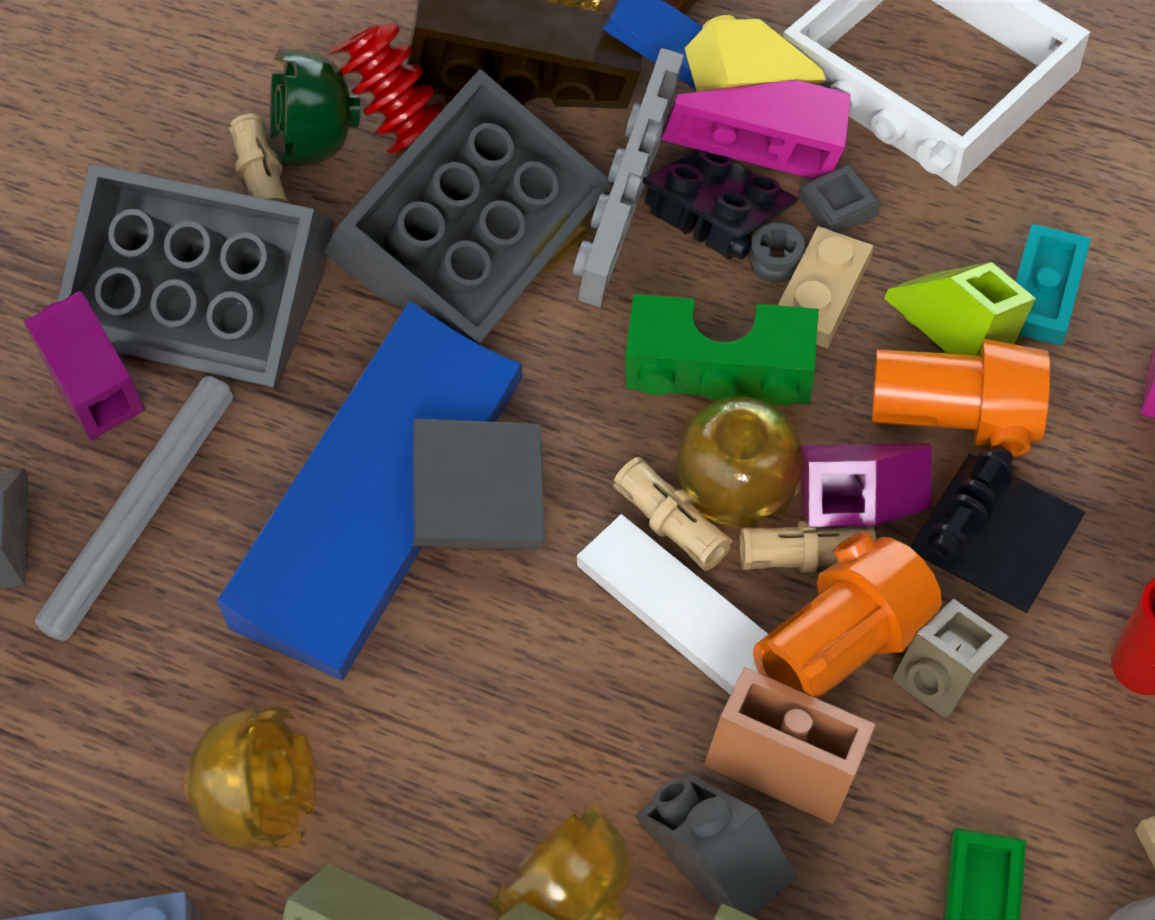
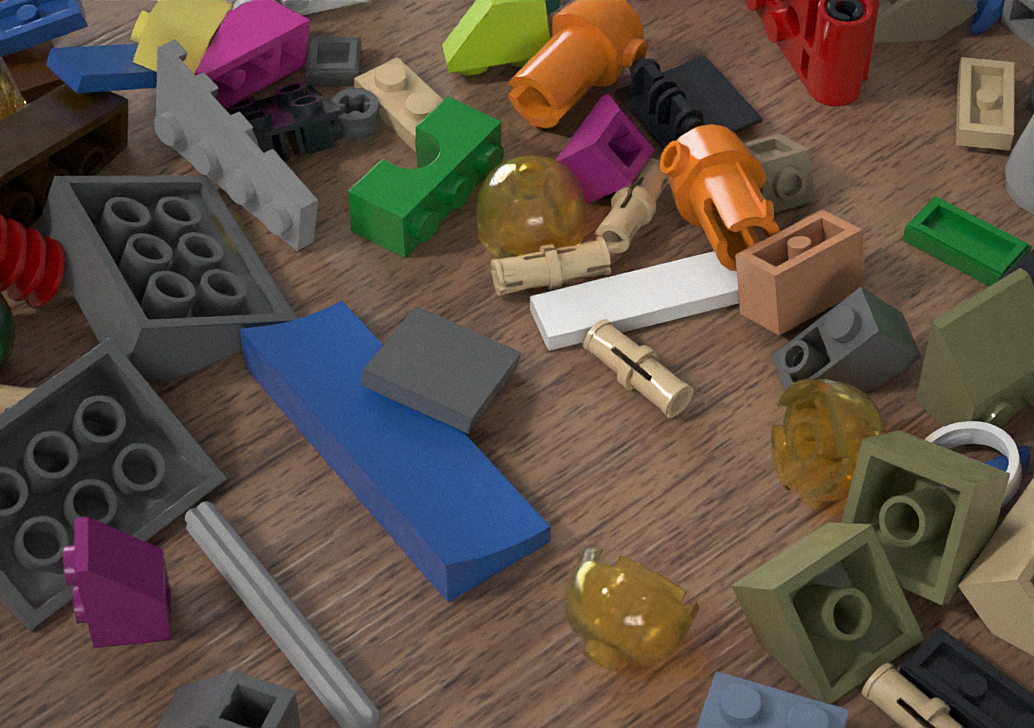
camera: 65 degrees left, 10 degrees down
(586, 654) = (663, 389): none -> tan pin

